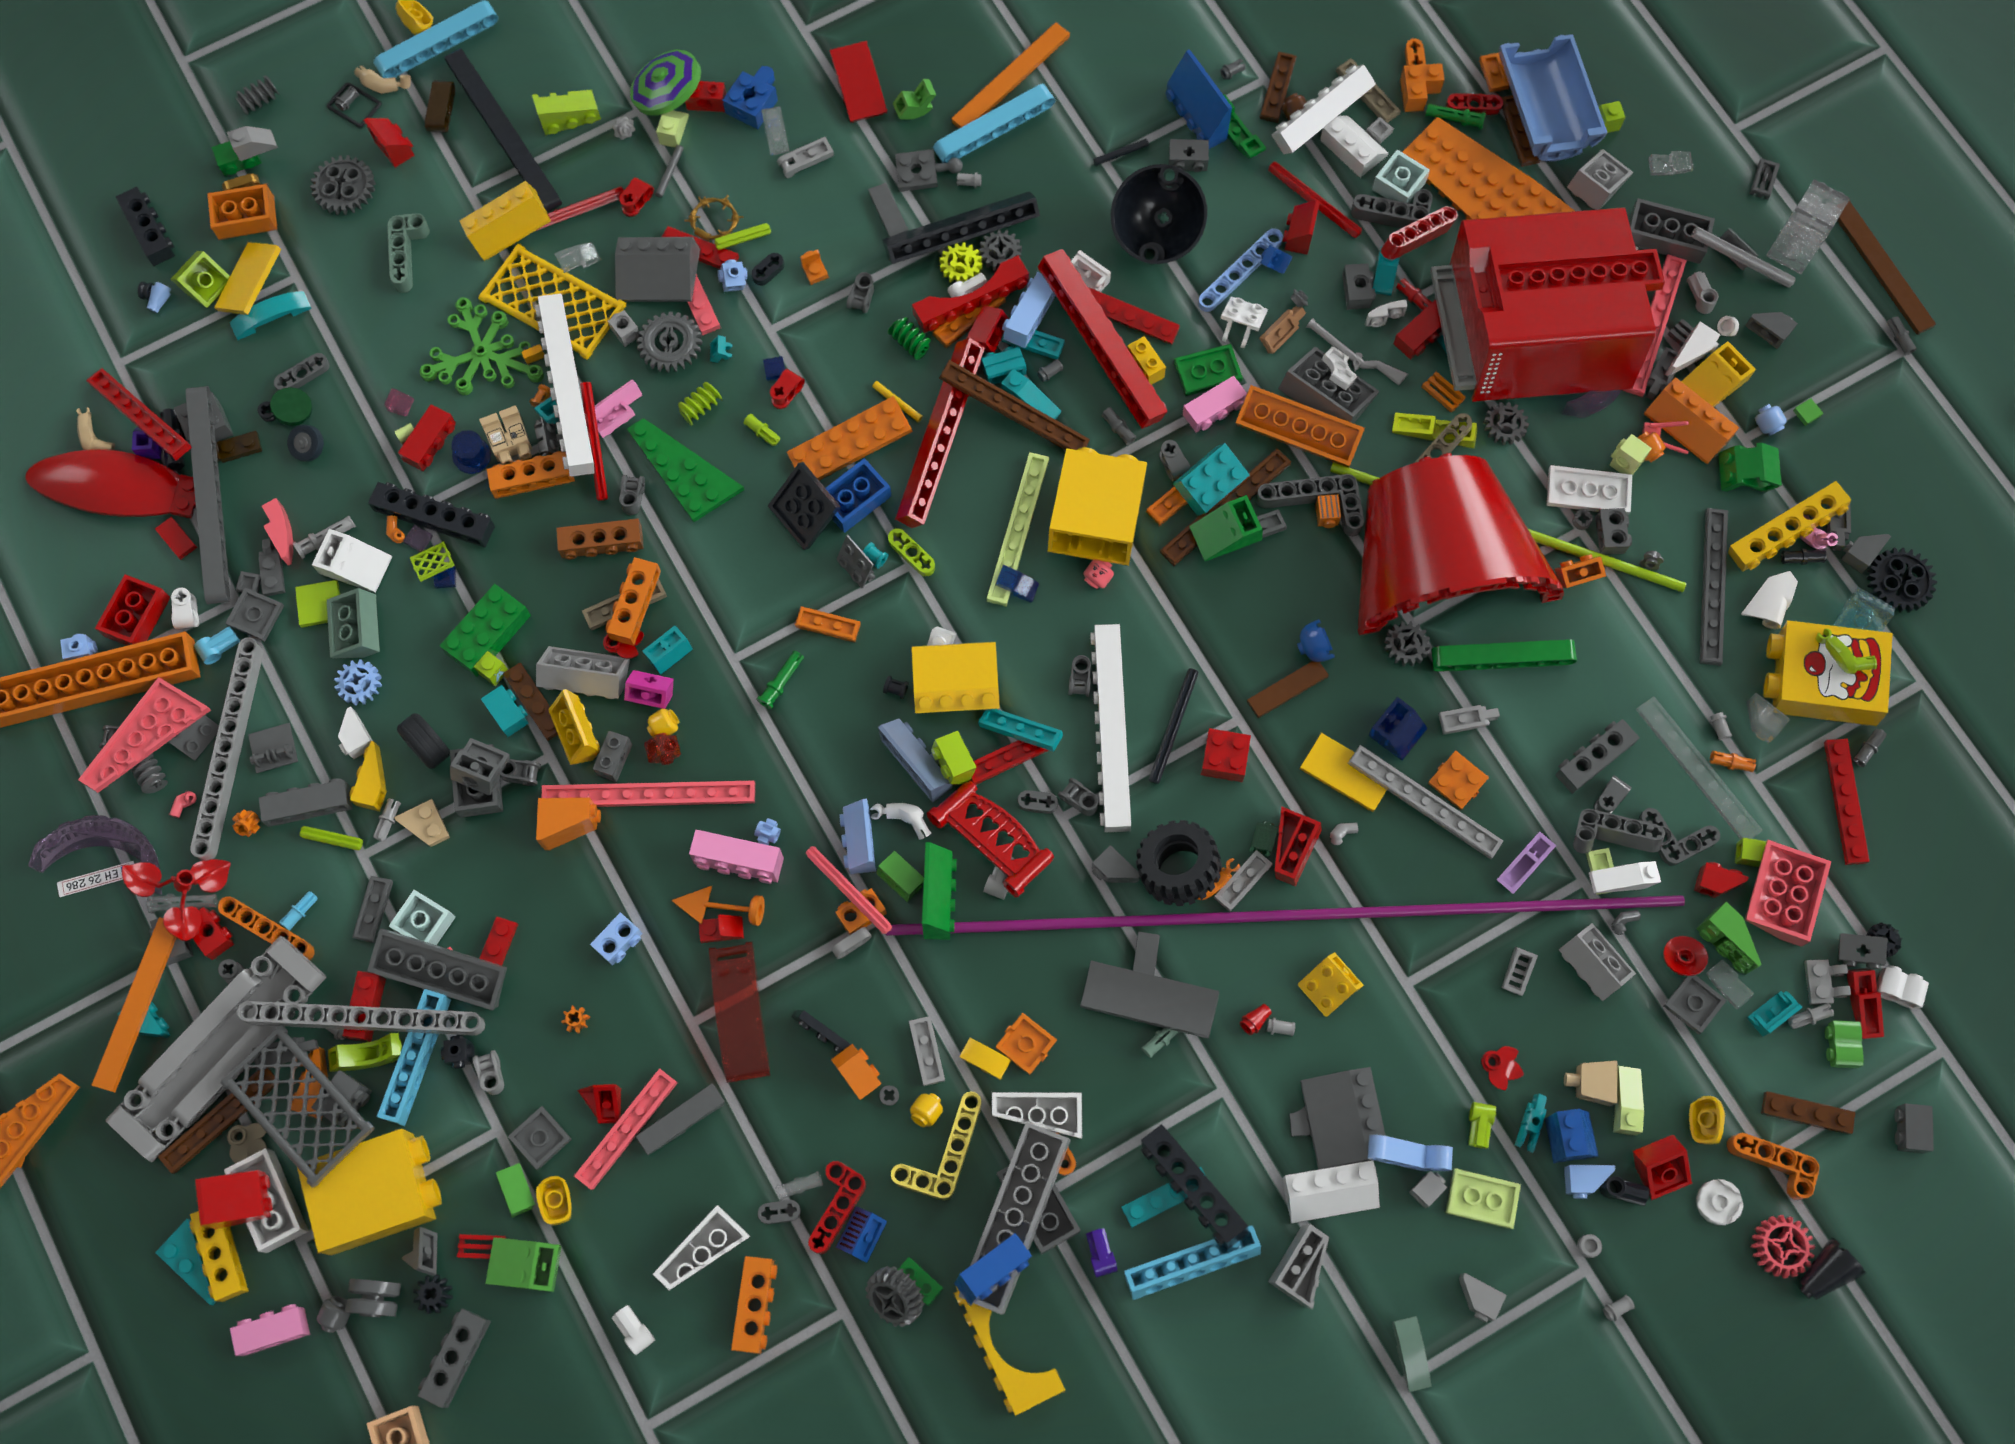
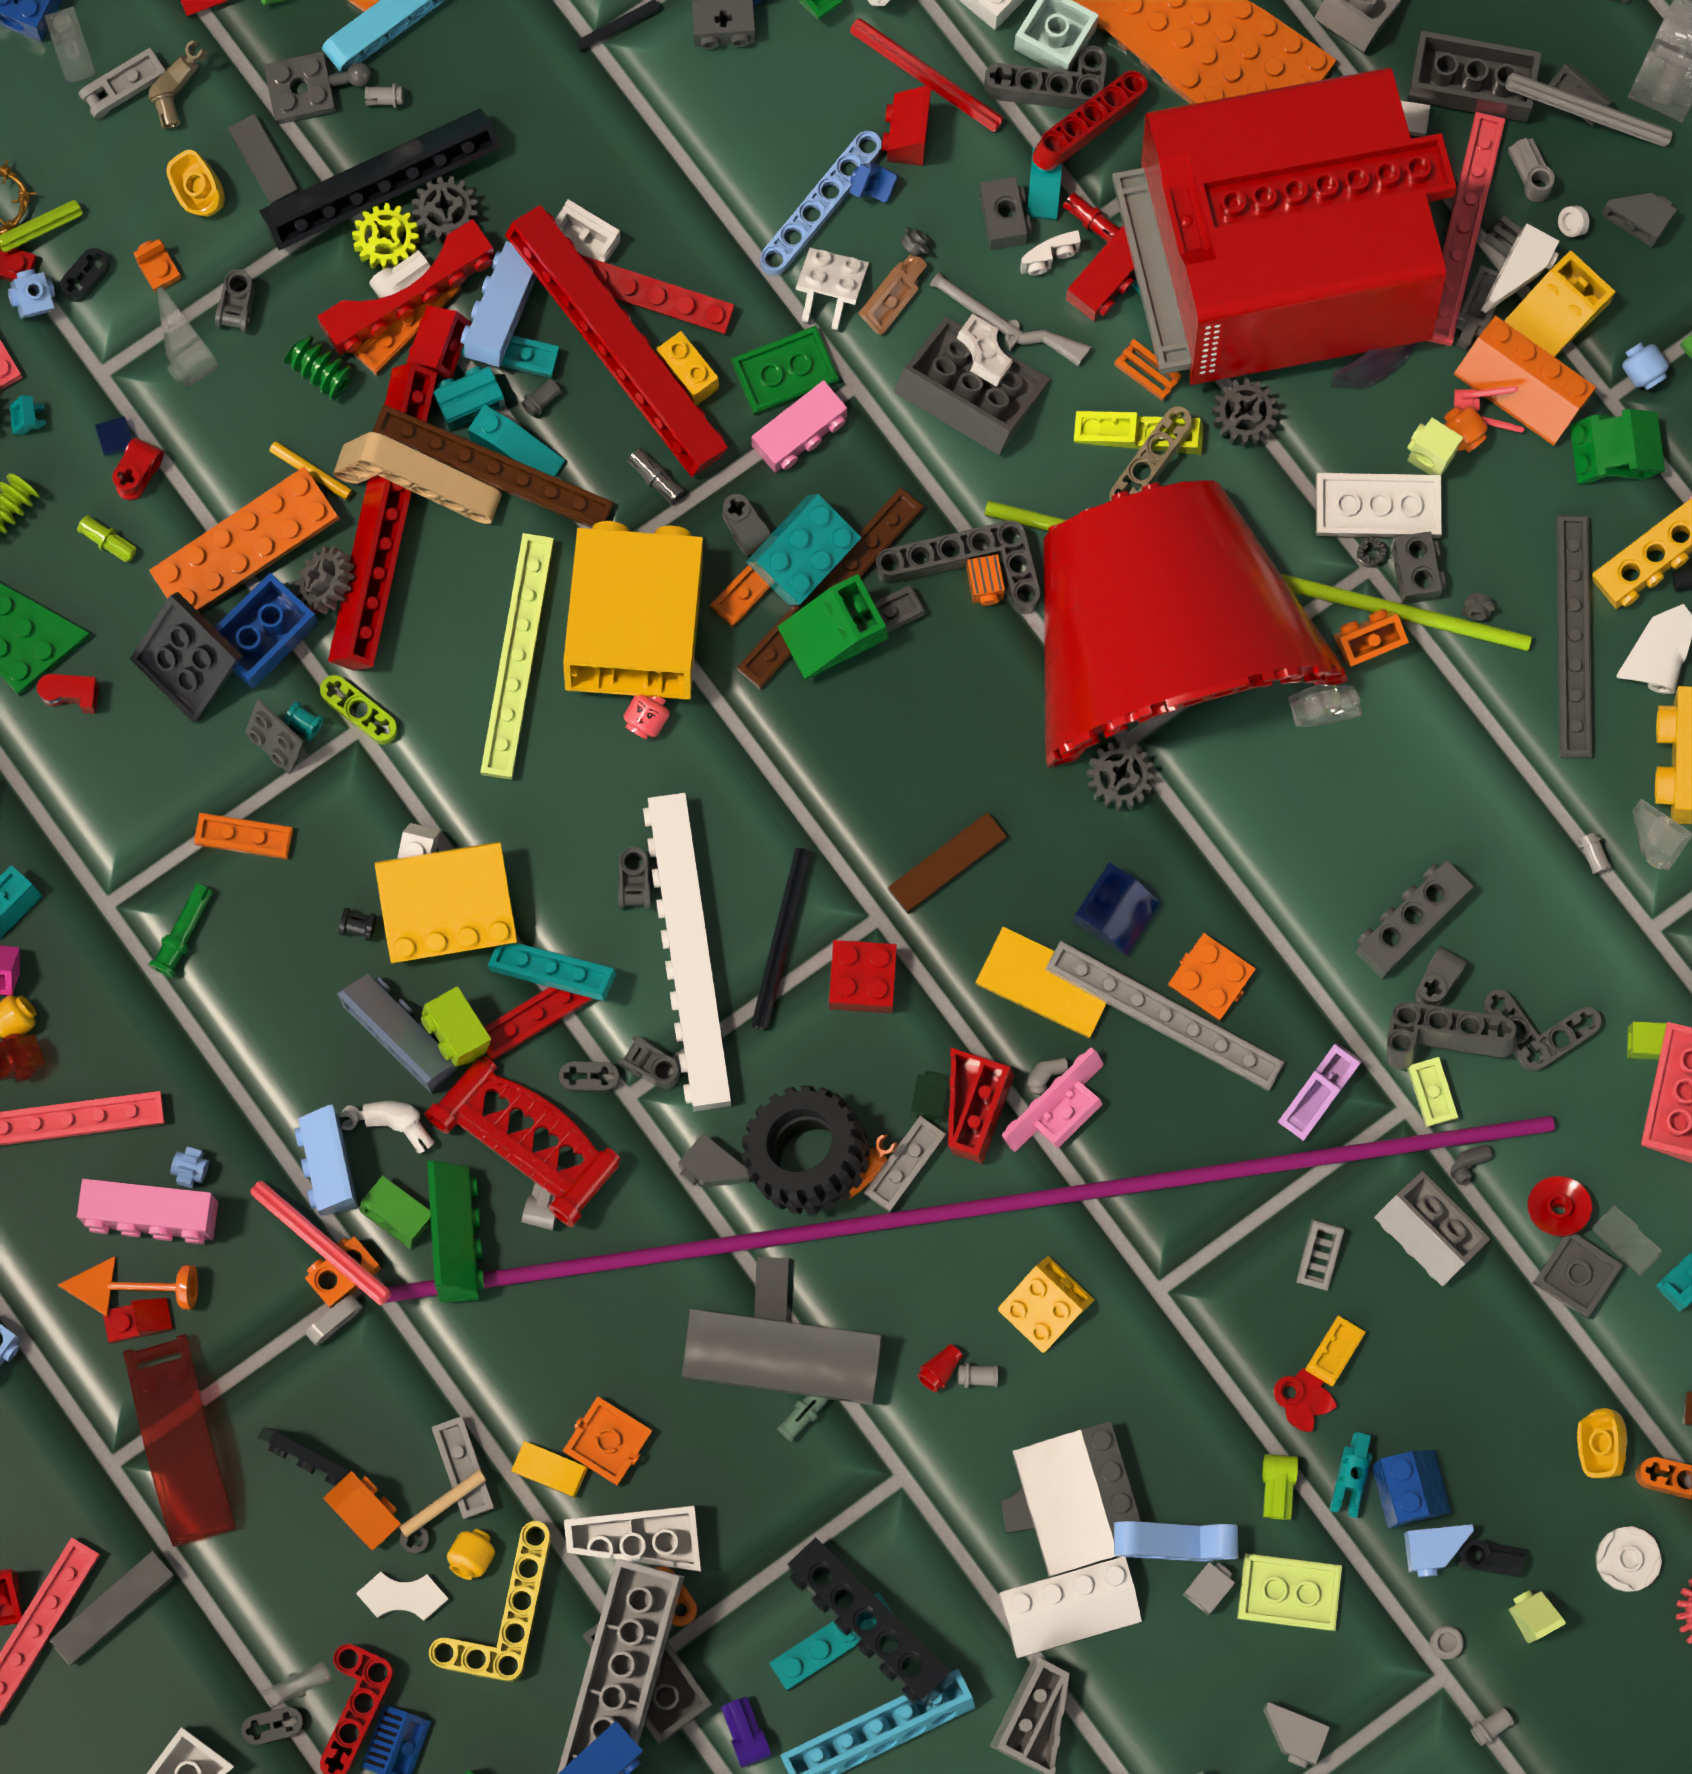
camera: 10 degrees left, 5 degrees up
(726, 520) = (69, 689): none -> red leg
(826, 320) = (185, 350): none -> clear slope
(837, 159) = (172, 82): none -> dark tan arm
(844, 219) = (195, 184): none -> yellow piece
(887, 1135) = (418, 1597): none -> white tile
(899, 467) = (325, 579): none -> dark grey gear
(911, 1073) = (442, 1503): none -> tan bar
(967, 406) = (382, 456): none -> tan beam
(1018, 583) = (524, 743): clear blue slope -> none
(1144, 200) = (654, 141): black piece -> none
(1299, 426) = (931, 451): orange arch -> none
(1315, 642) = (982, 789): blue cylinder -> none
(1351, 854) = (1060, 1107): none -> bright pink bracket
(1467, 718) = (1217, 882): light grey hinge -> none
(1504, 655) = (1266, 778): green beam -> none
(1525, 1037) = (1335, 1351): none -> yellow plate
(1546, 612) = (1325, 705): none -> clear slope
(1595, 1082) = (1439, 1406): tan torso -> none
(1625, 877) = (1463, 1100): white slope -> none
(1630, 1105) = (1489, 1428): yellowish green slope -> none
(1654, 1234) = (1535, 1615): none -> yellowish green slope
(1663, 1166) = (1543, 1517): red slope -> none
(1699, 769) = (1566, 922): clear tile -> none
(1715, 880) = (1600, 1089): red slope -> none
(1730, 936) = (1618, 1167): bright green slope -> none
(1732, 761) = (1614, 905): orange pin -> none

